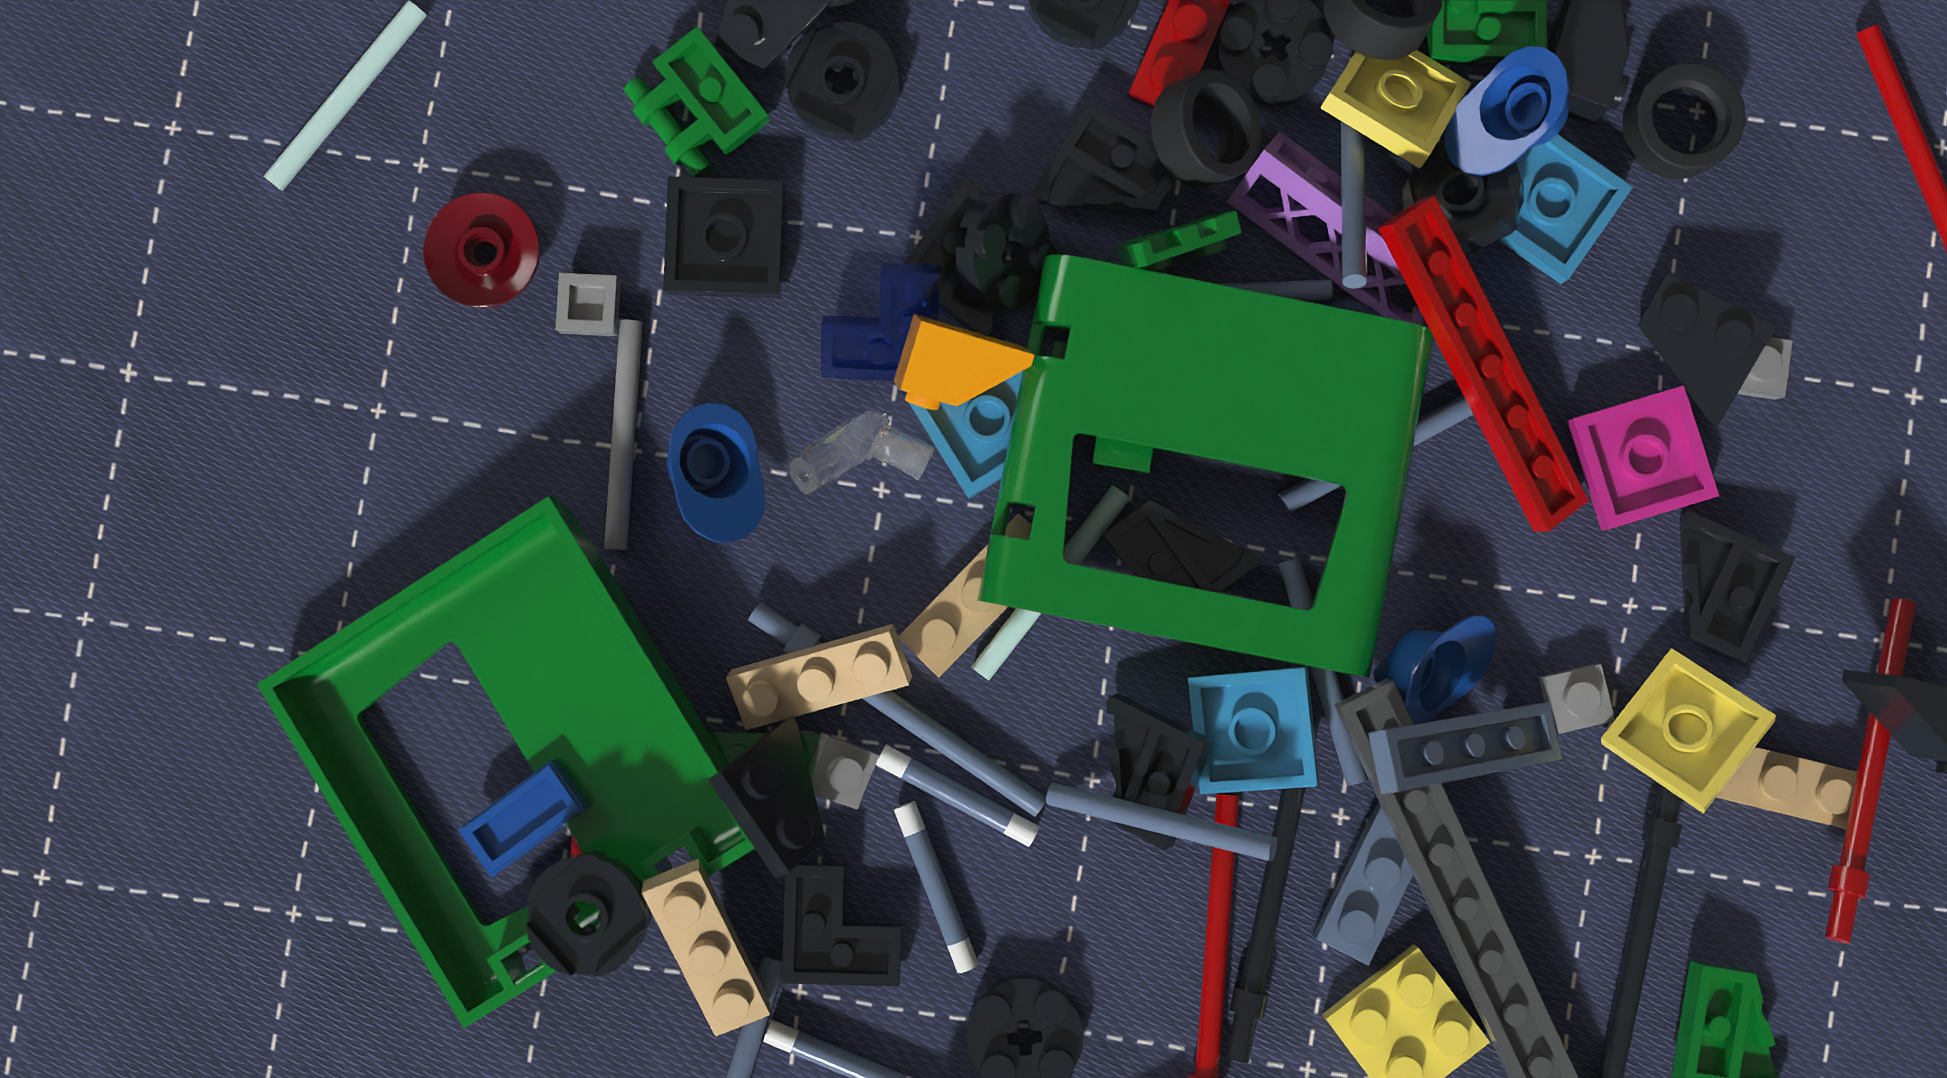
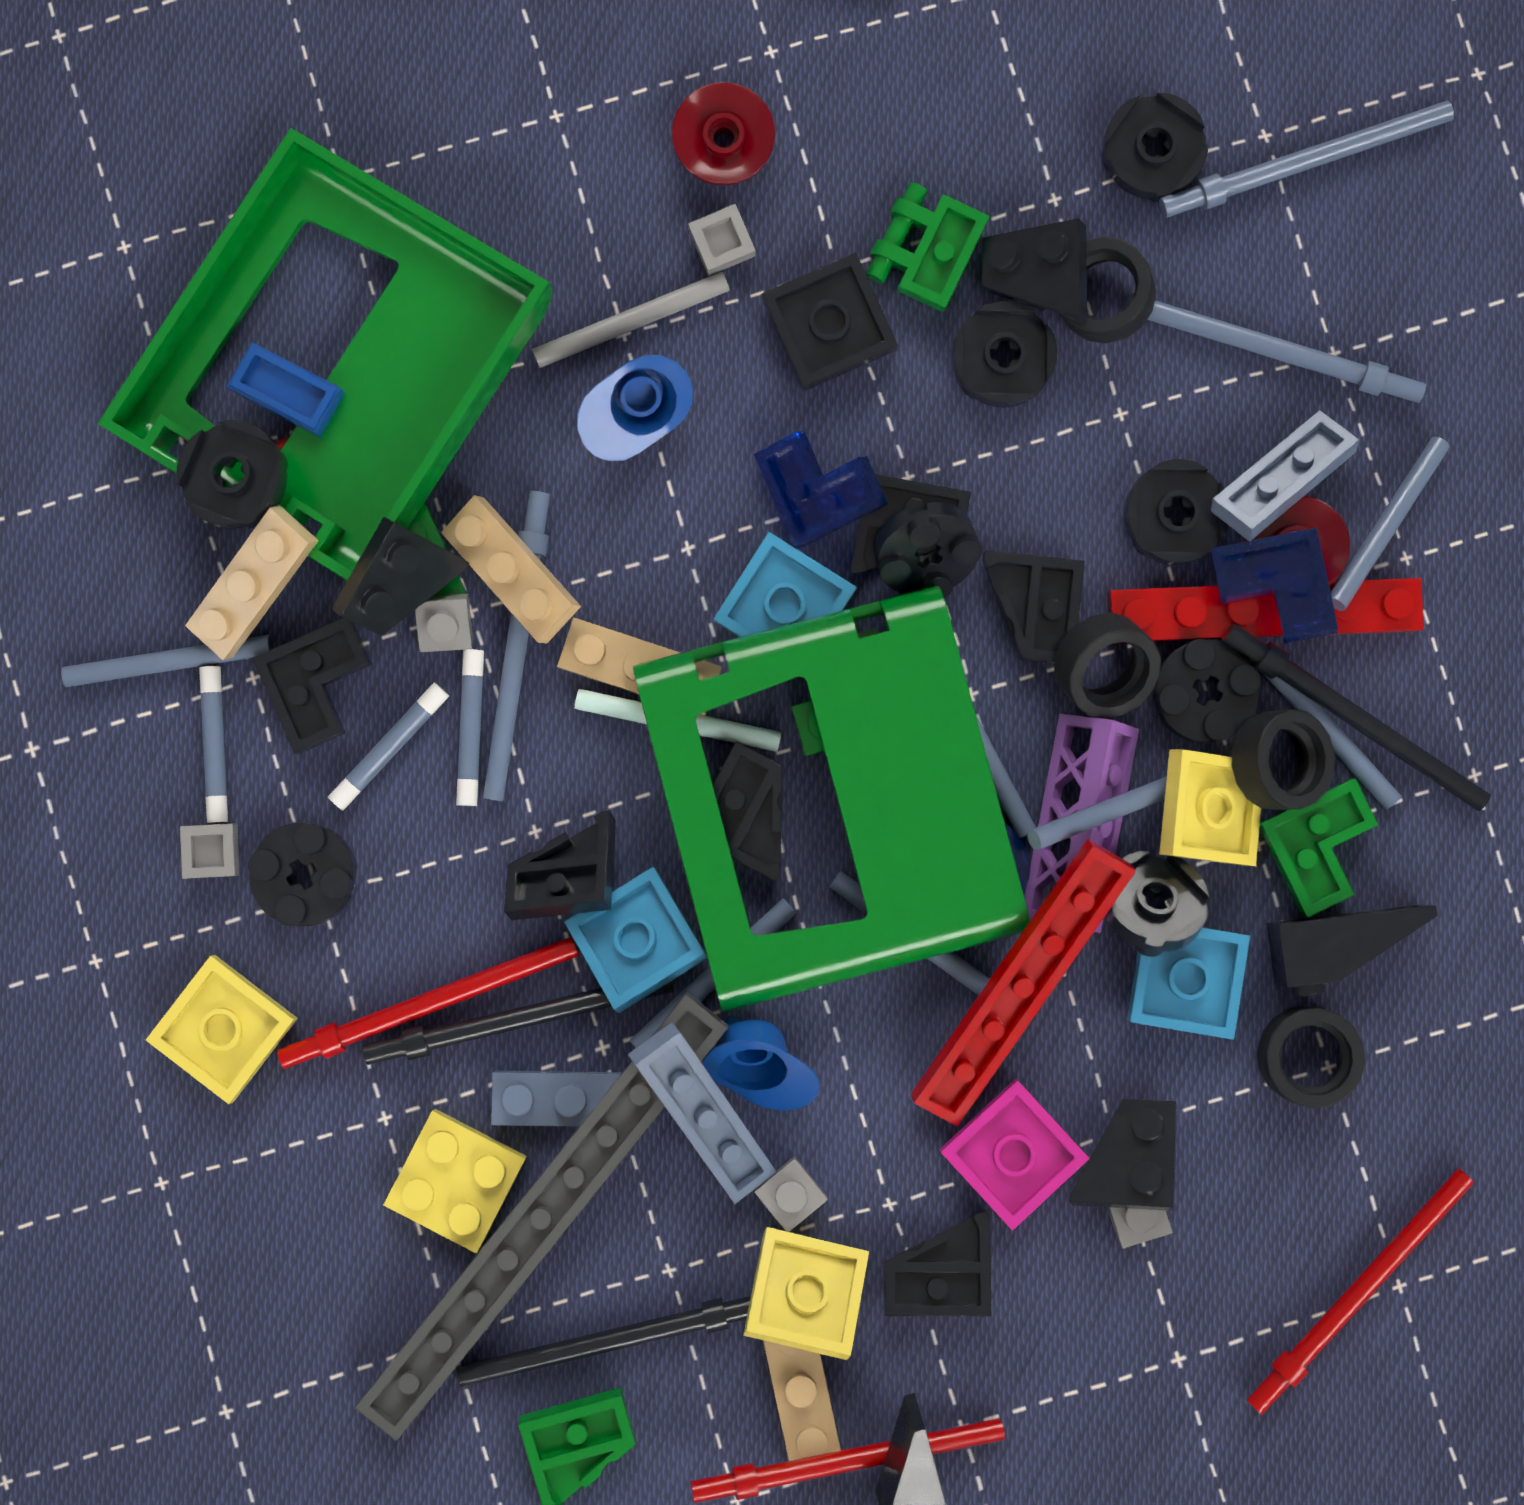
camera: 60 degrees right, 0 degrees up
(851, 444) = (710, 504): clear arm -> none
(954, 363) = (813, 553): light orange slope -> none
(1162, 821) = (525, 898): sand blue bar -> none
(1201, 235) = (991, 675): green wing -> none
(1509, 112) = (1239, 903): blue piece -> none

